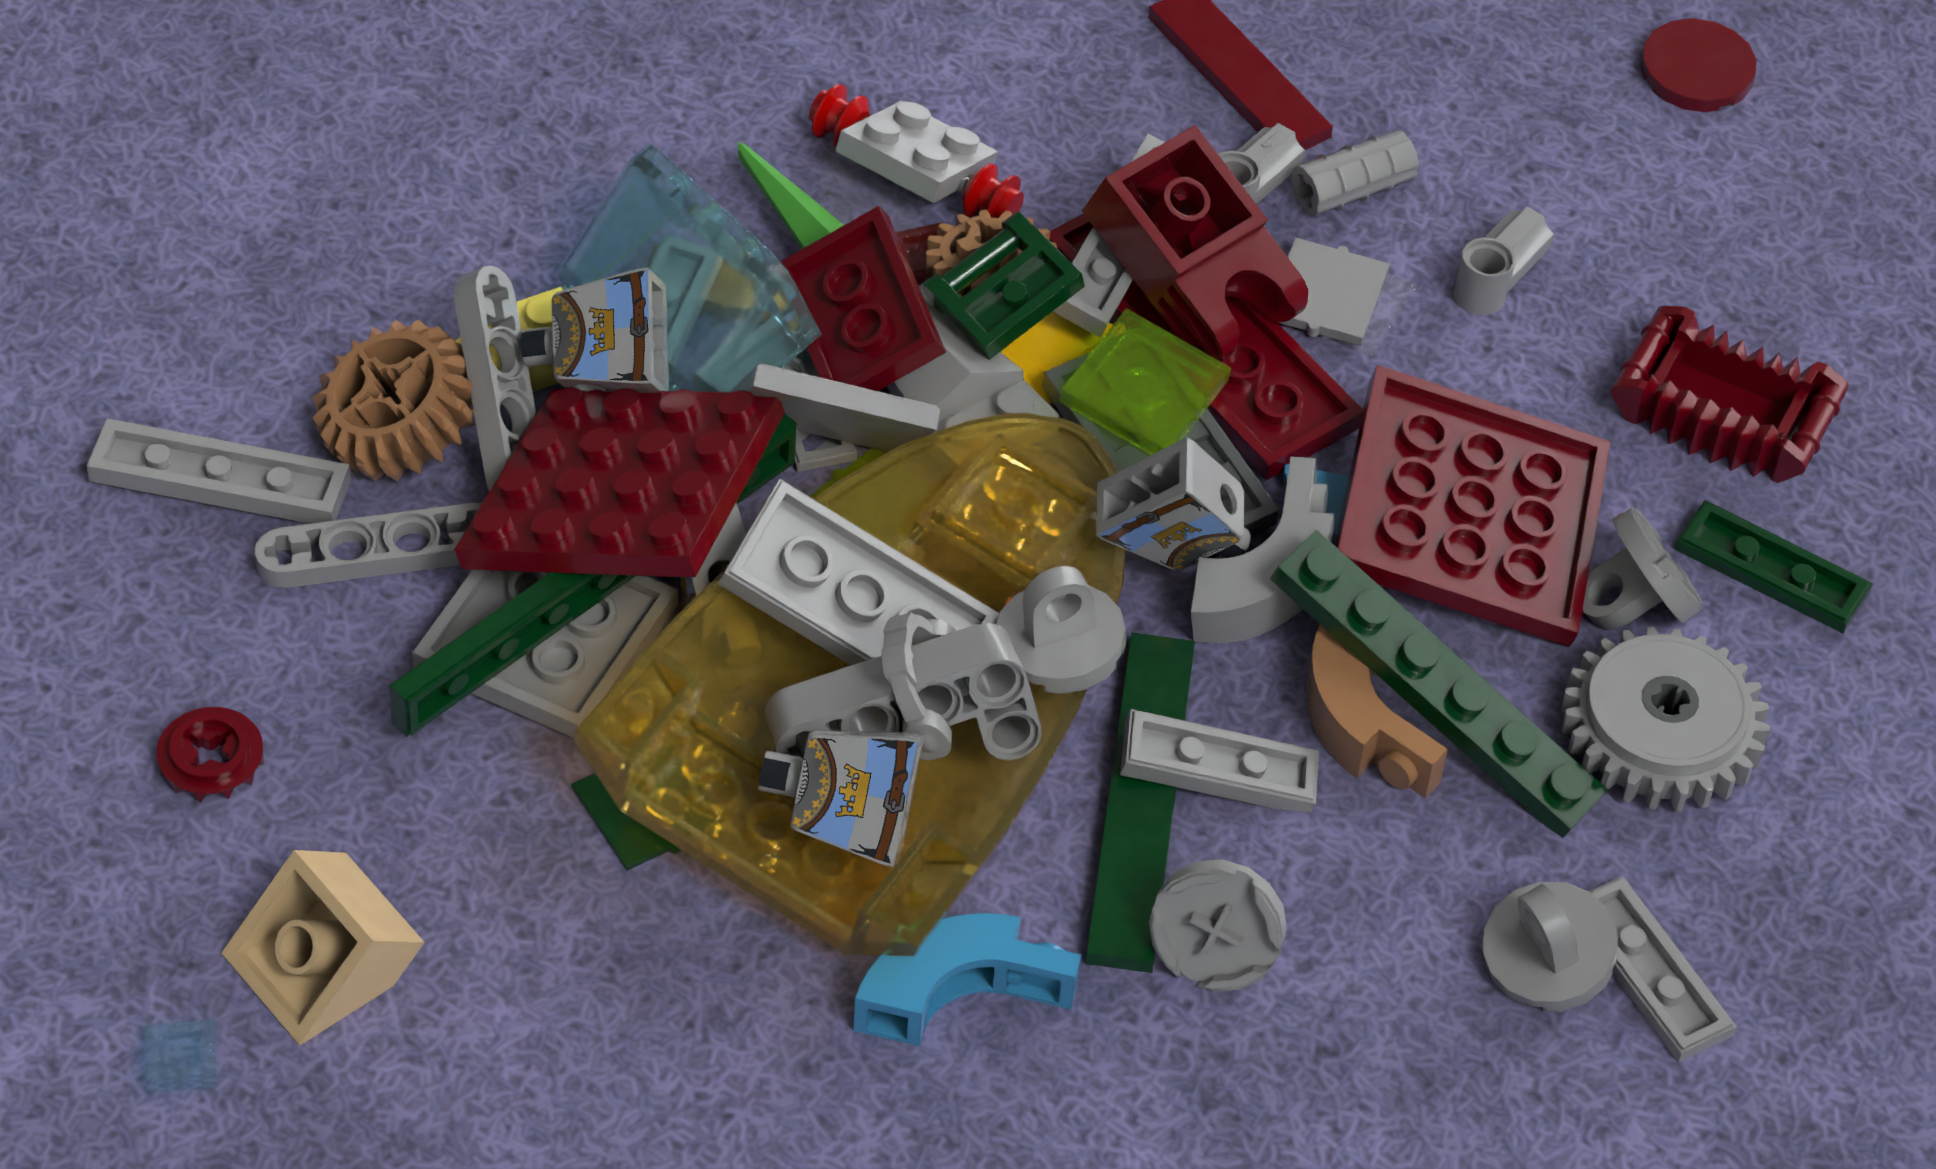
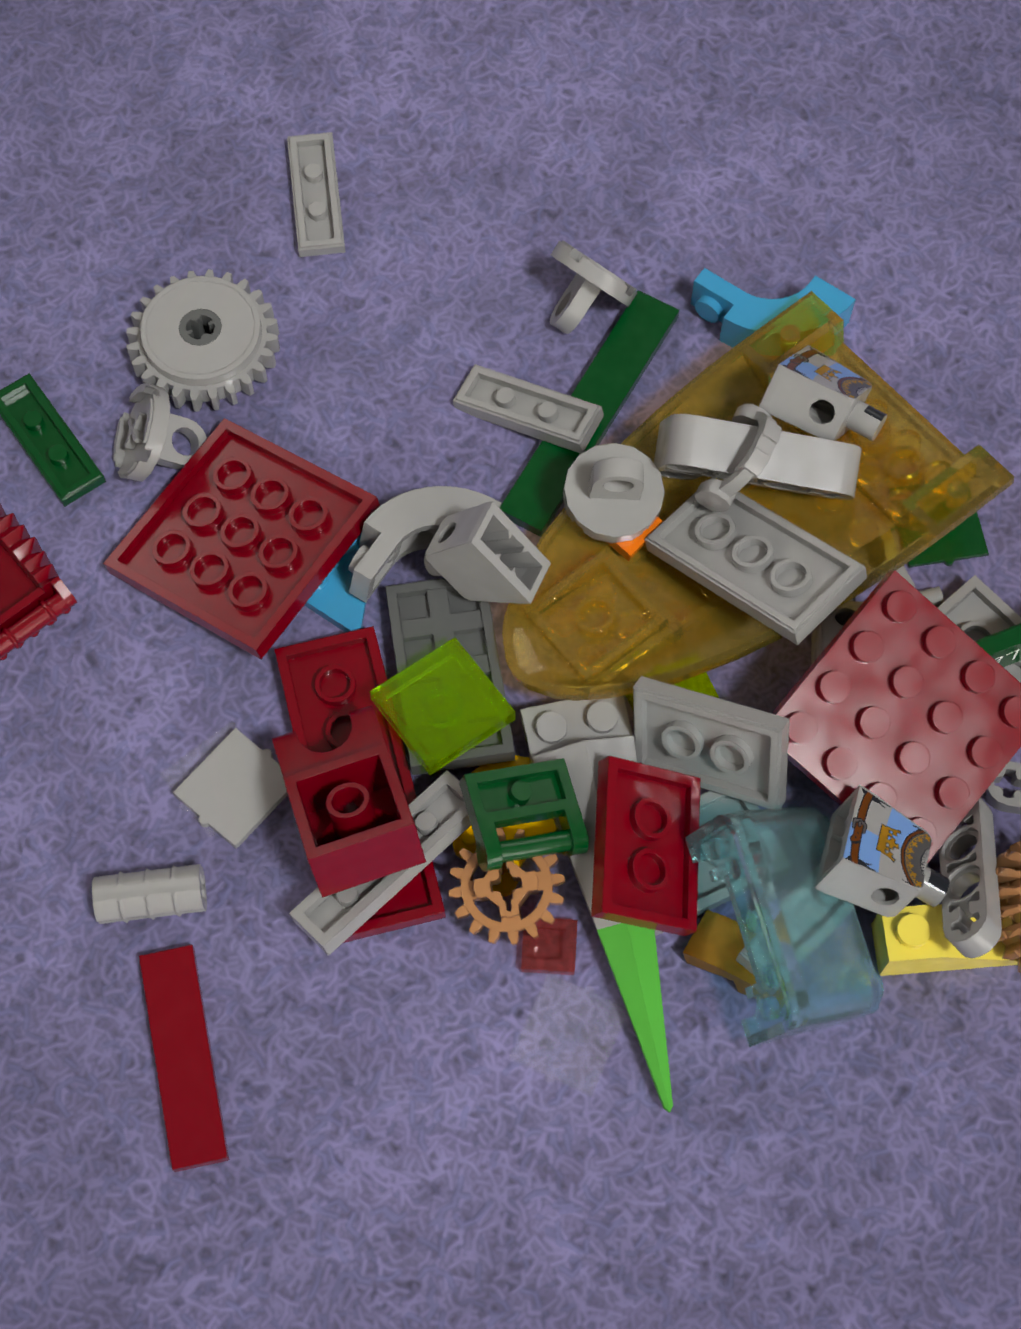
camera: 155 degrees left, 15 degrees up
(916, 151) = (517, 1044): light grey plate -> none
(1265, 160) = (233, 925): light grey piece -> none
(1360, 727) = (406, 449): medium nougat arch -> none
(1438, 684) = (356, 397): dark green plate -> none
(1499, 260) = (78, 761): light grey piece -> none
(1550, 946) = (375, 215): light grey tile -> none

